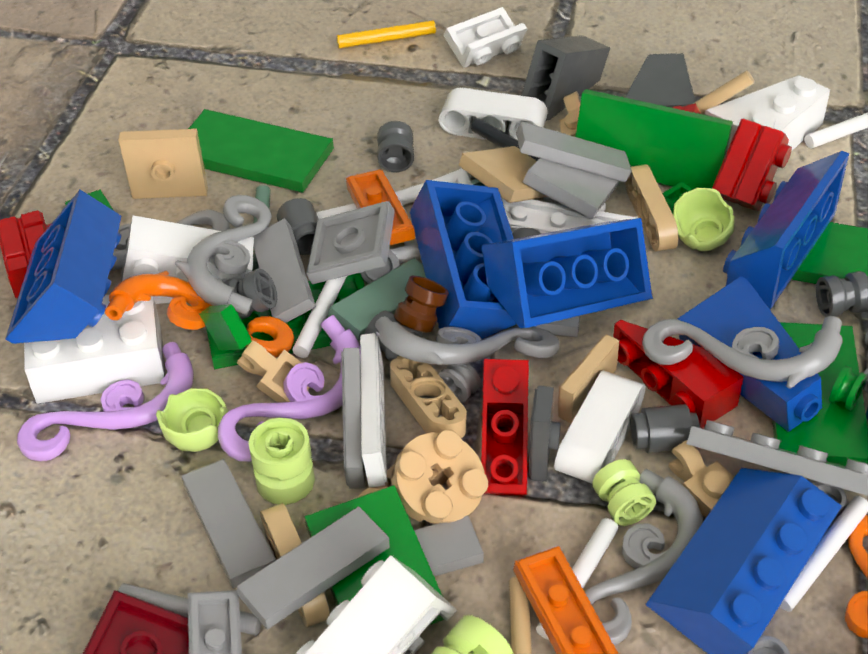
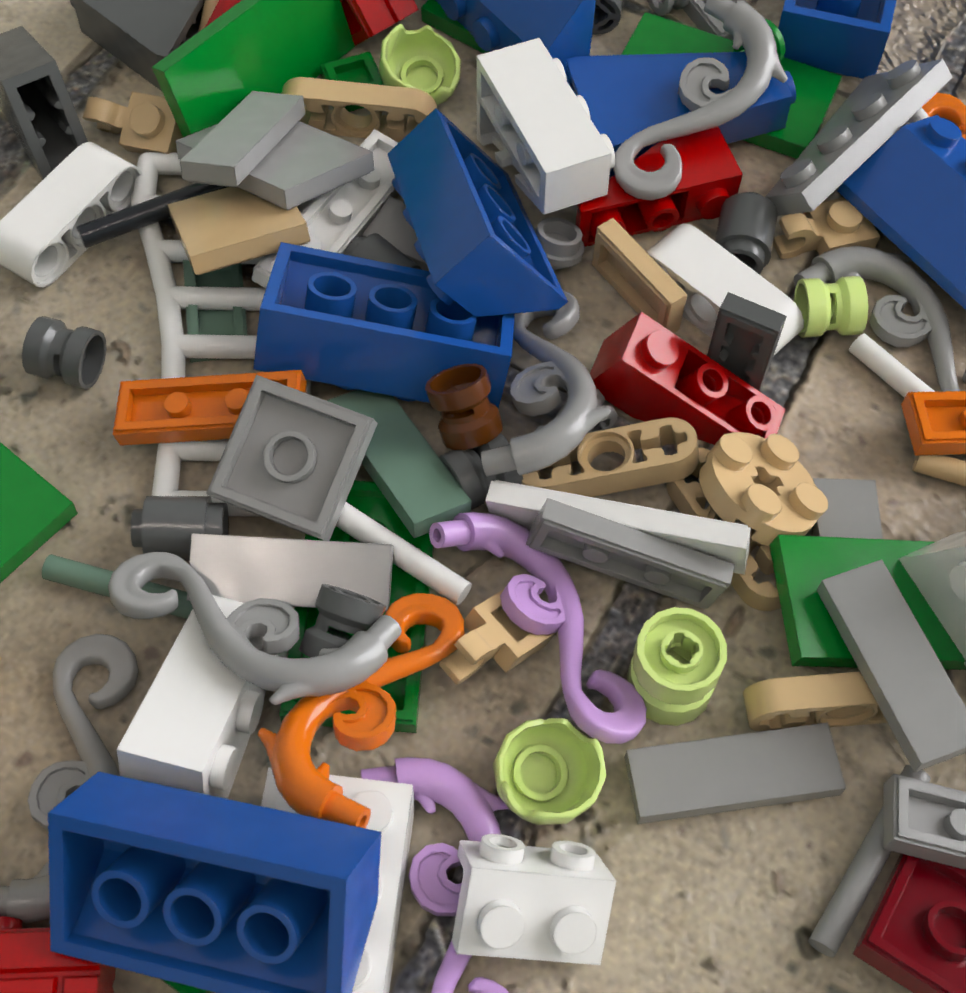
camera: 75 degrees left, 15 degrees up
(112, 430) = (532, 901): none -> white bracket
(225, 327) = (423, 668): green tile -> none
(594, 327) = (560, 242): none -> light grey plate
(663, 275) = (541, 127): none -> white wedge

